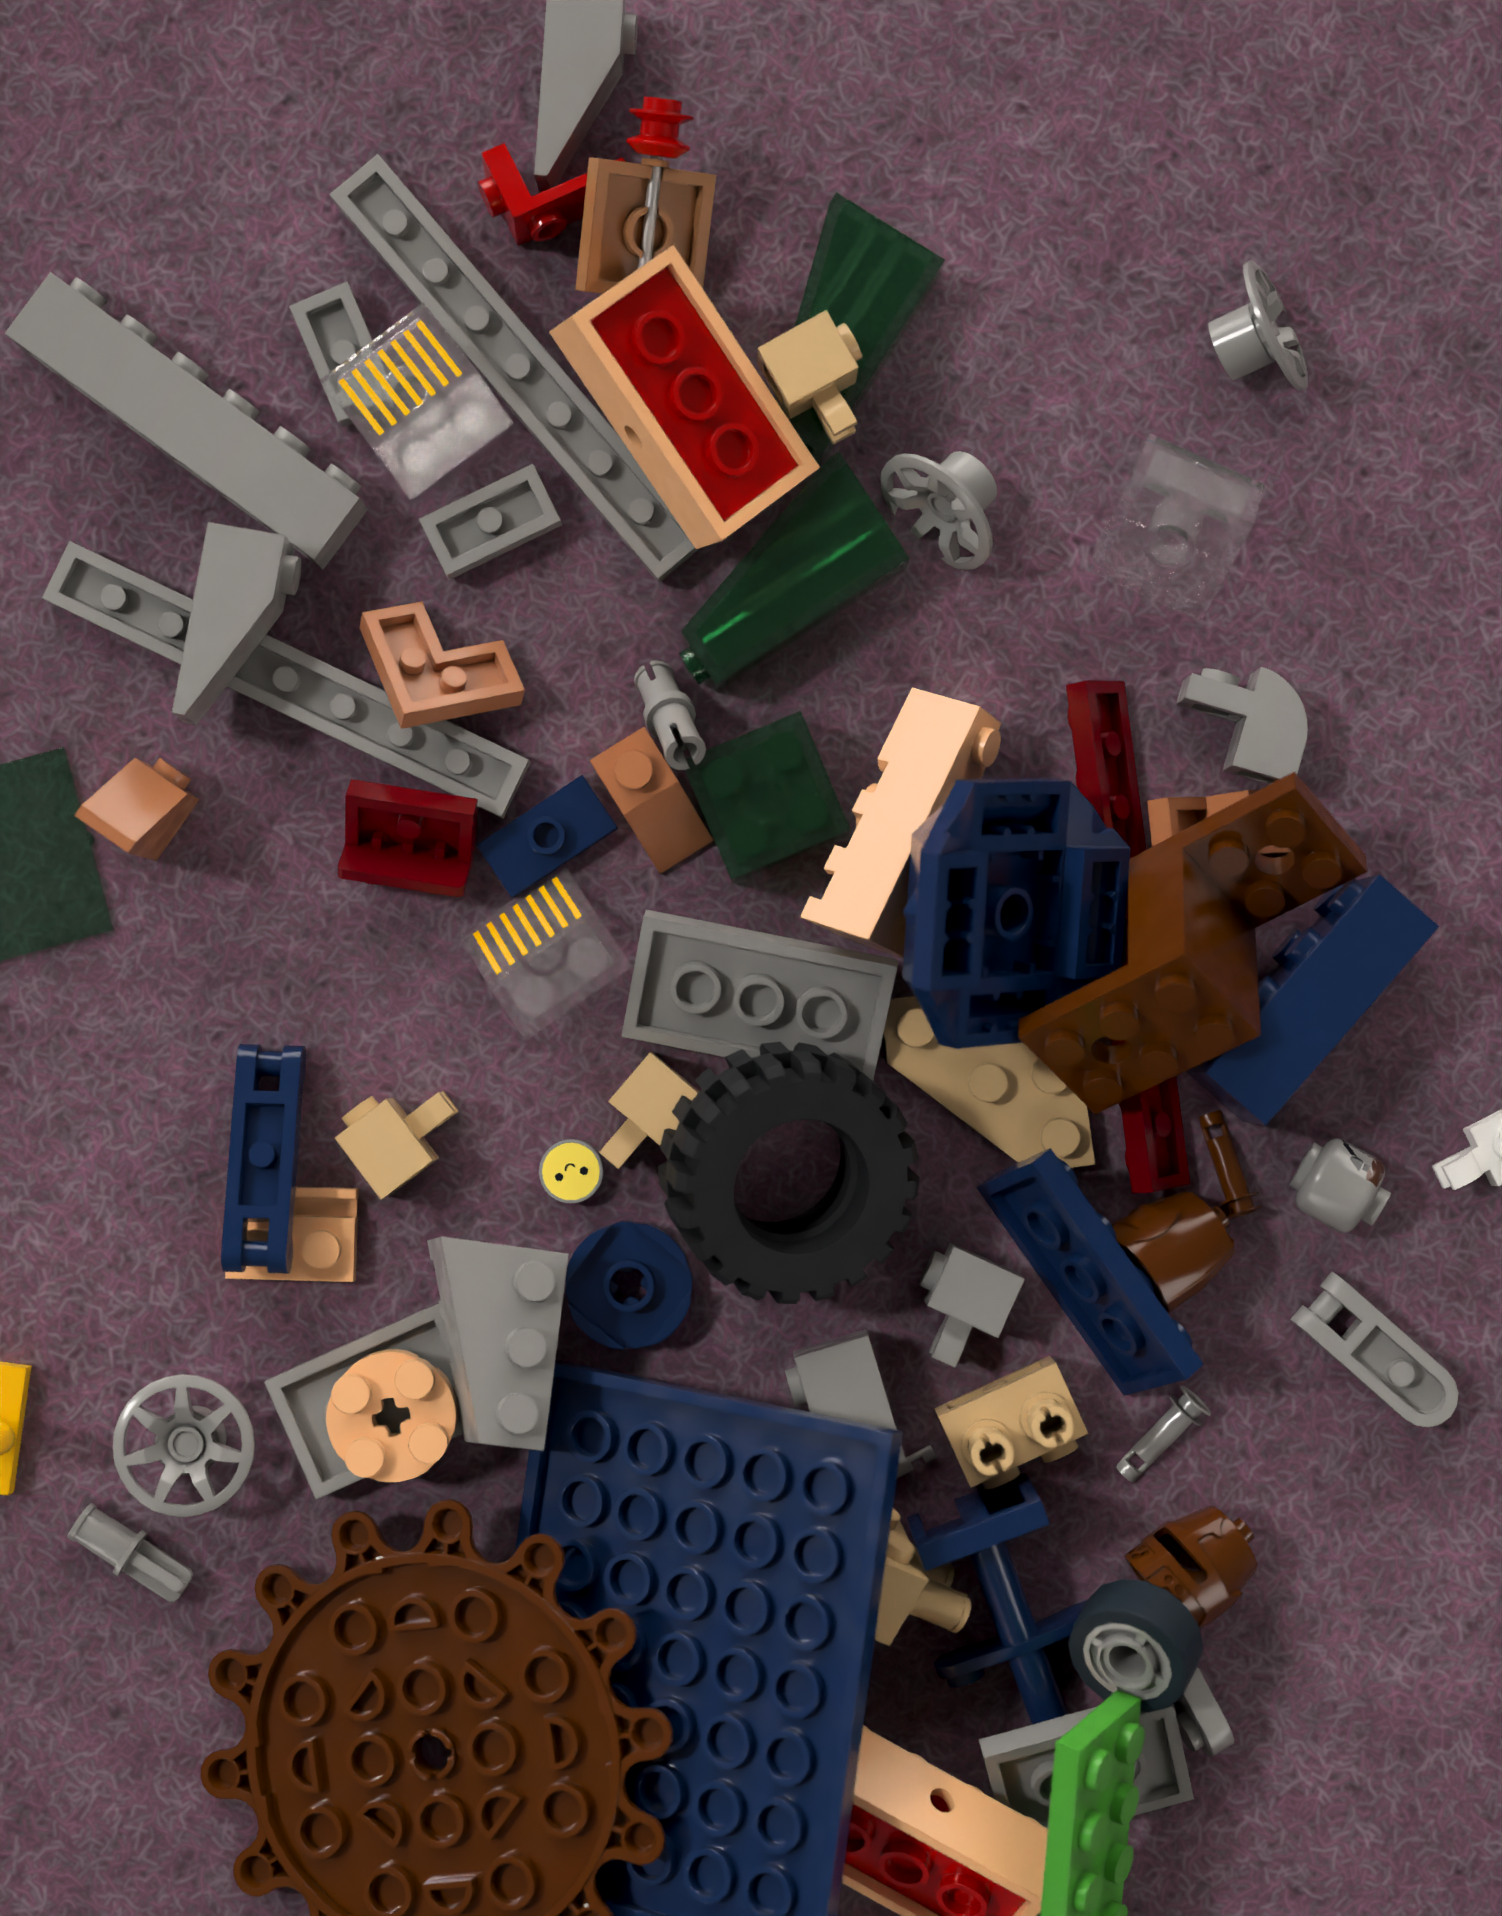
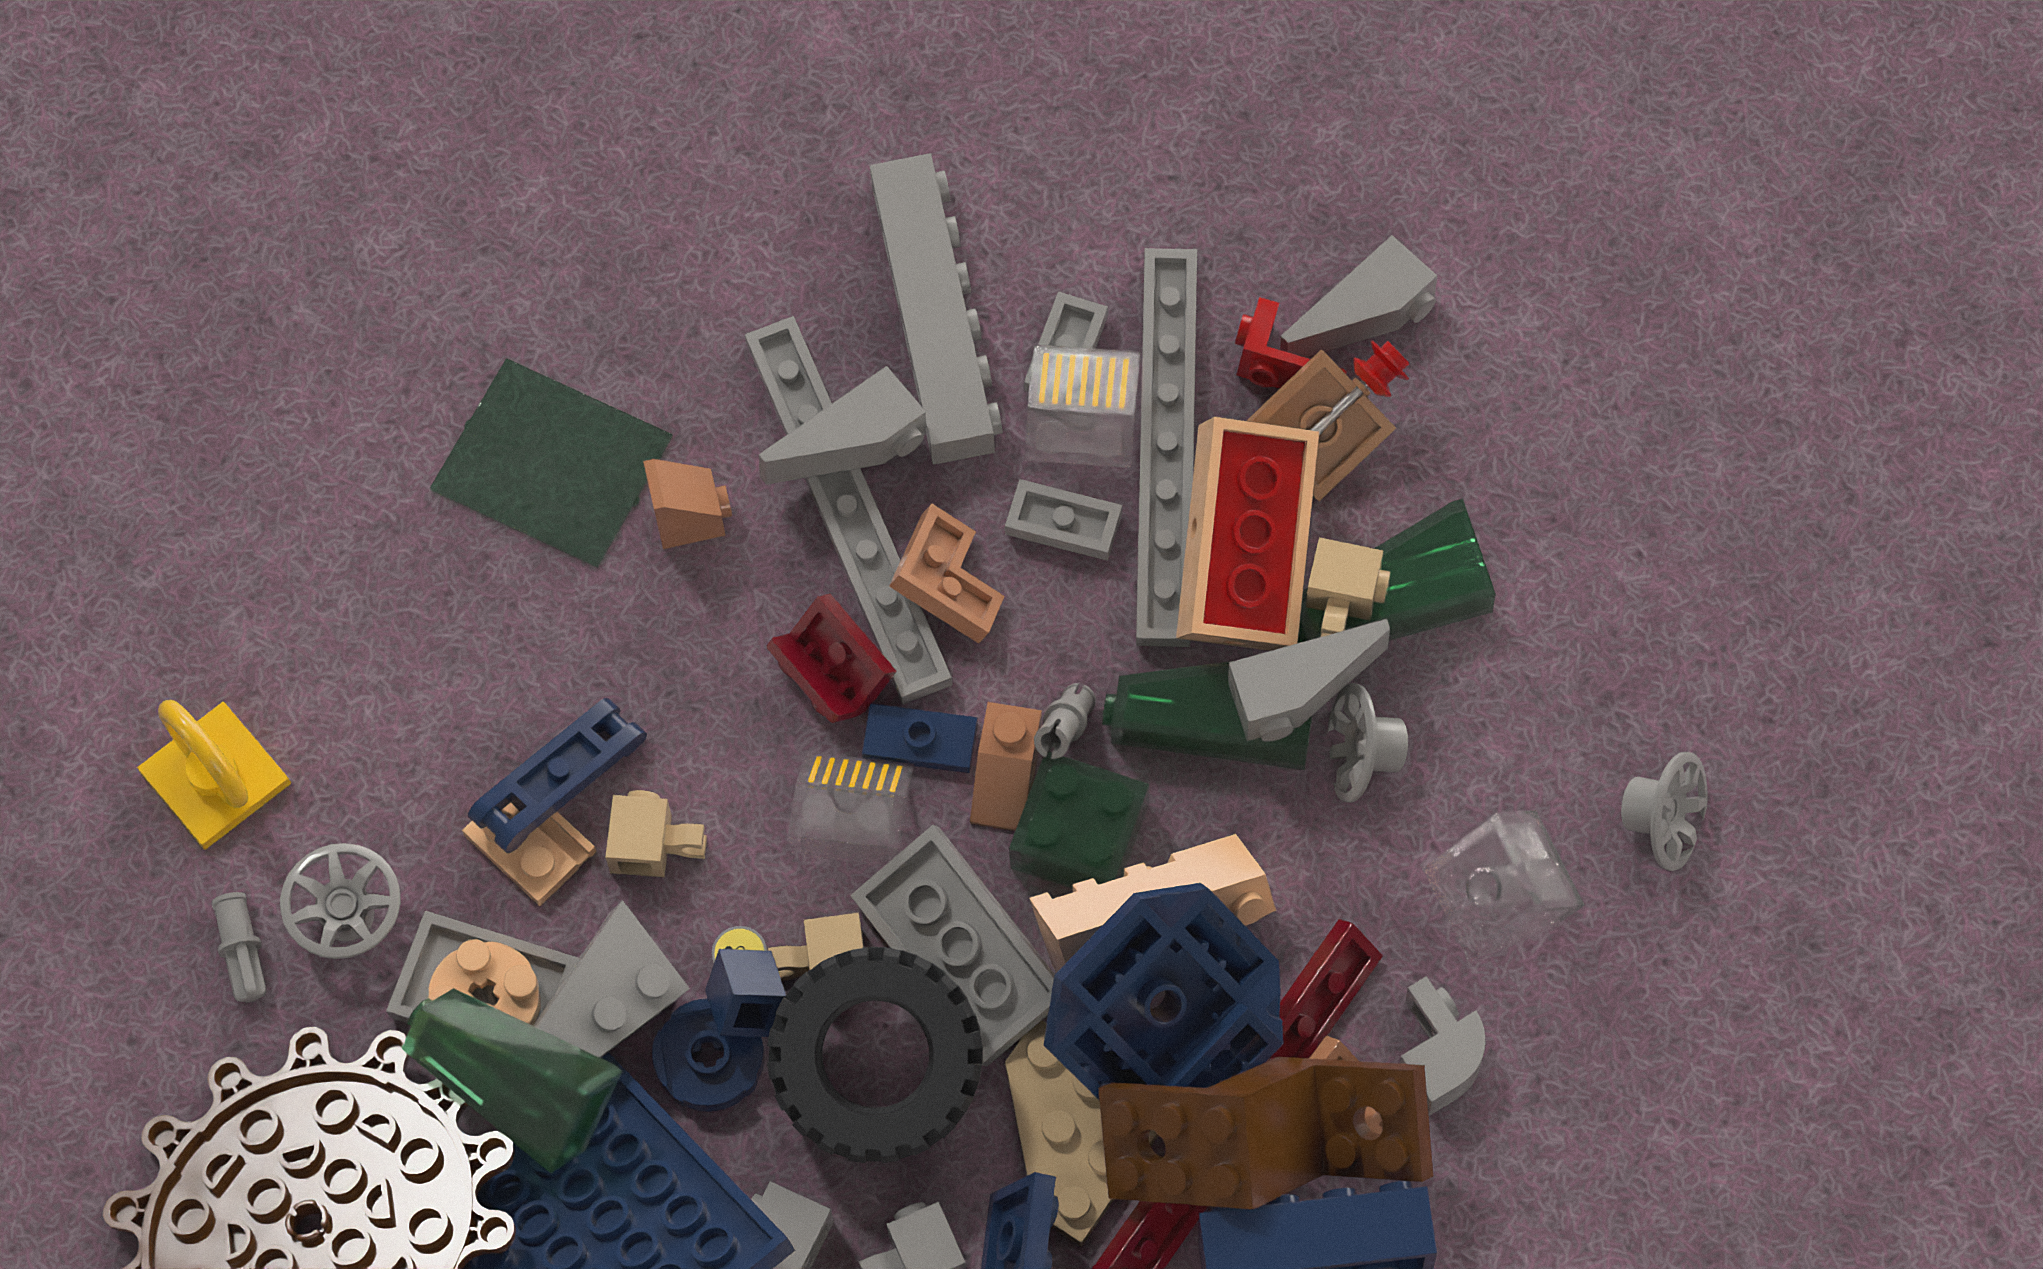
camera: 45 degrees right, 20 degrees down
(492, 1483) = (513, 1074): none -> clear green slope
(618, 1212) = (744, 992): none -> dark blue brick
(847, 512) = (1293, 682): none -> light grey slope

